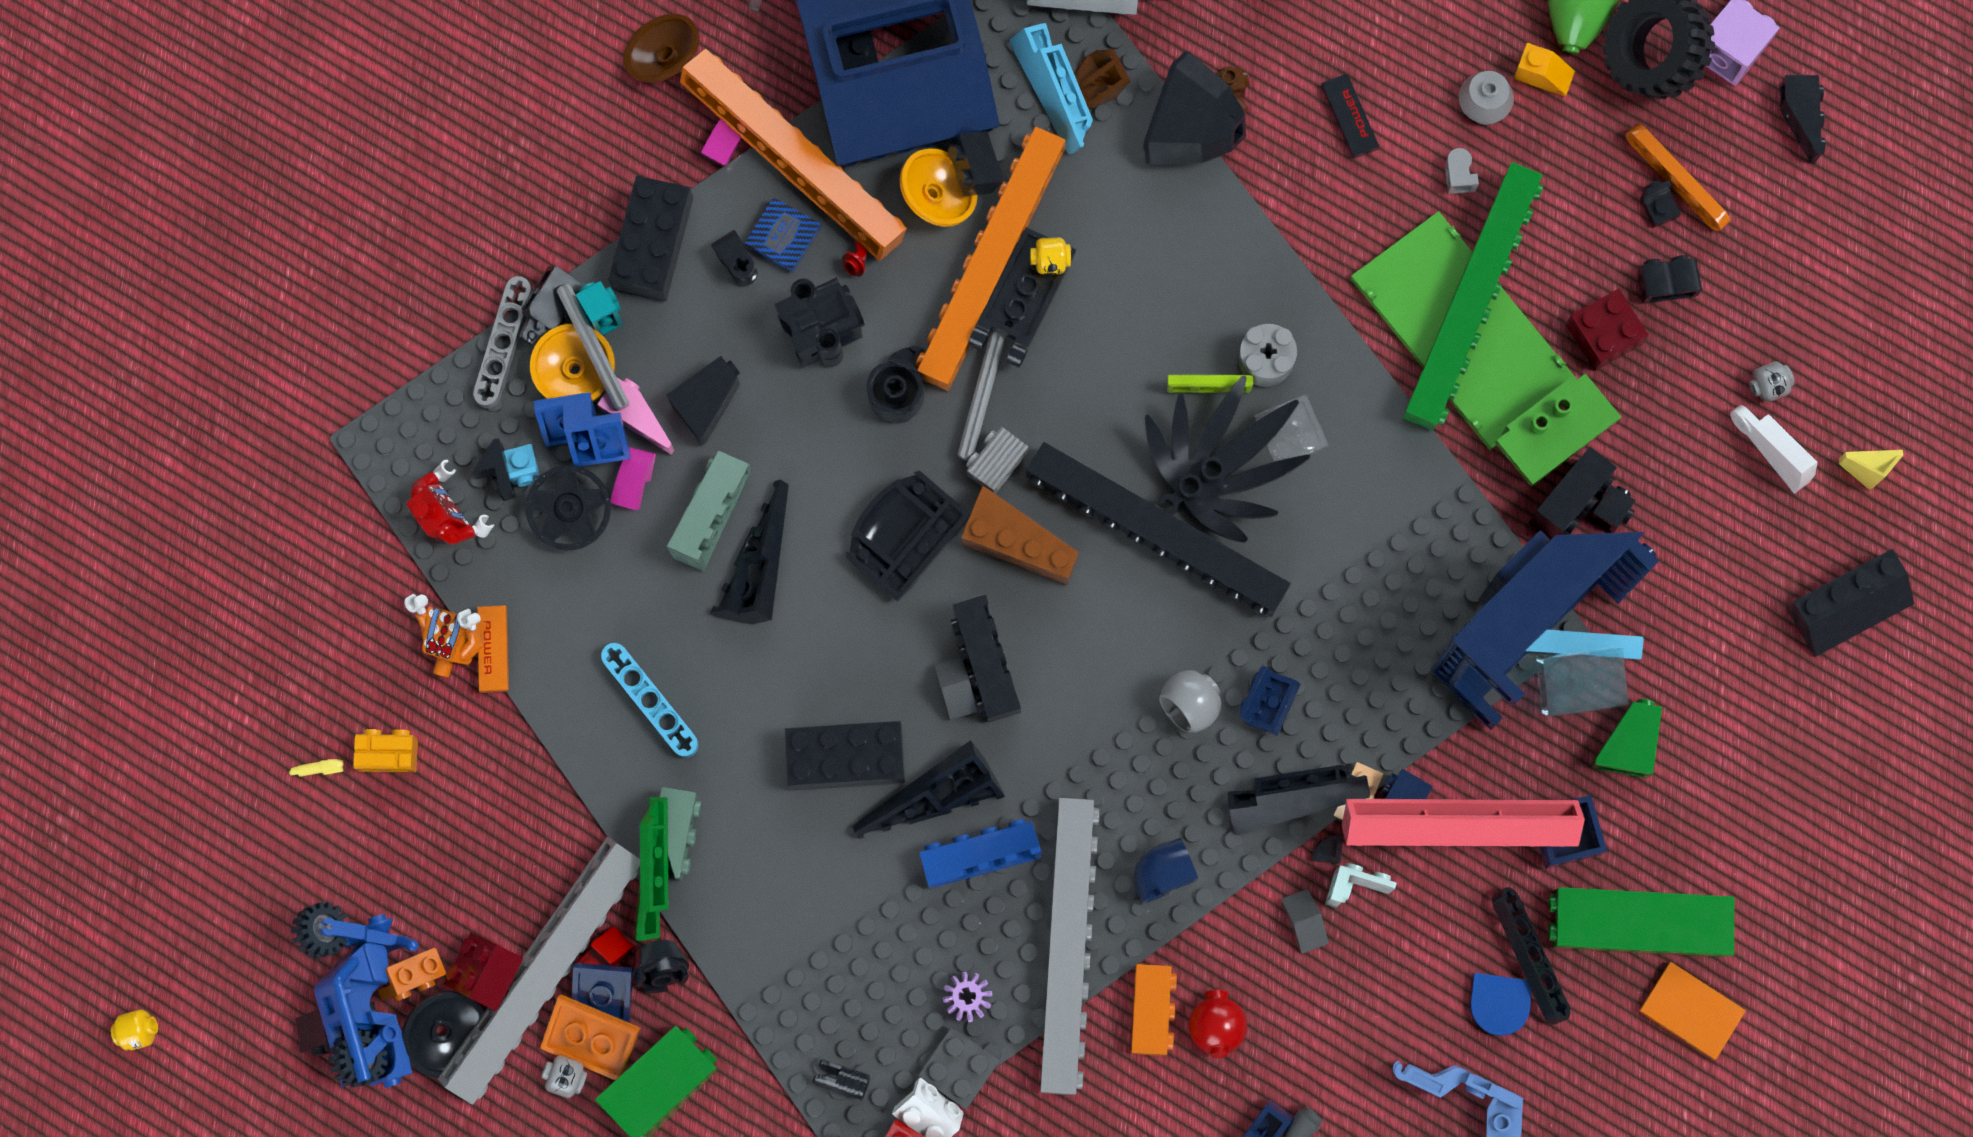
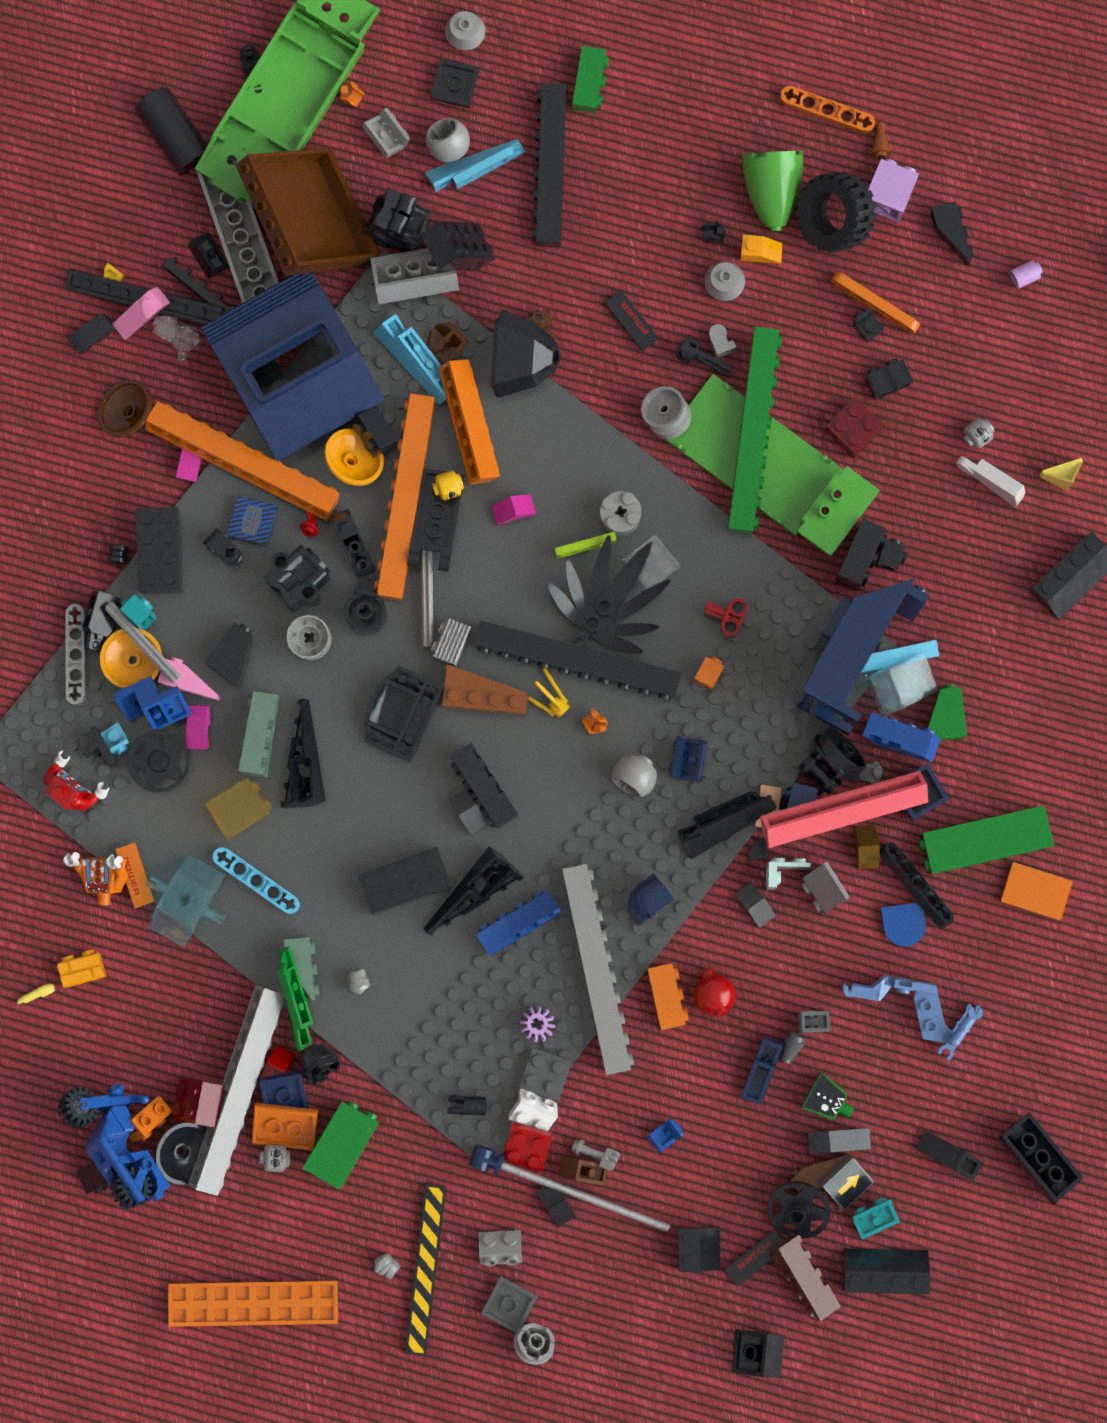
camera: 15 degrees left, 5 degrees up
(563, 674) = (180, 921): none -> clear light blue slope
(597, 231) = (118, 554): none -> black wheel
(654, 597) = (238, 808): none -> clear yellow panel
(744, 871) = (357, 981): none -> light grey arm
(821, 388) = (297, 641): none -> light grey wheel
(905, 297) = (352, 542): none -> black slope
(1101, 184) = (469, 421): none -> orange brick
(1114, 582) = (557, 705): none -> yellow plant
(1127, 311) = (513, 509): none -> dark pink slope
(1157, 618) = (594, 722): none -> orange arm
(1328, 594) = (709, 672): none -> orange brick
(1340, 1101) = (813, 1021): none -> dark grey slope
(1364, 242) = (666, 412): none -> light grey wheel
(1373, 527) = (727, 615): none -> red beam
(1406, 923) = (824, 888): none -> light grey slope
(1417, 171) = (690, 350): none -> black piece
(1474, 751) = (839, 754): none -> black piece
(1477, 887) = (867, 847): none -> pearl gold slope
(1488, 33) = (713, 233): none -> black arm
(1508, 786) = (872, 772): none -> light grey arm
(1564, 751) = (901, 737): none -> blue wedge
(1887, 194) = (1026, 274): none -> lavender brick

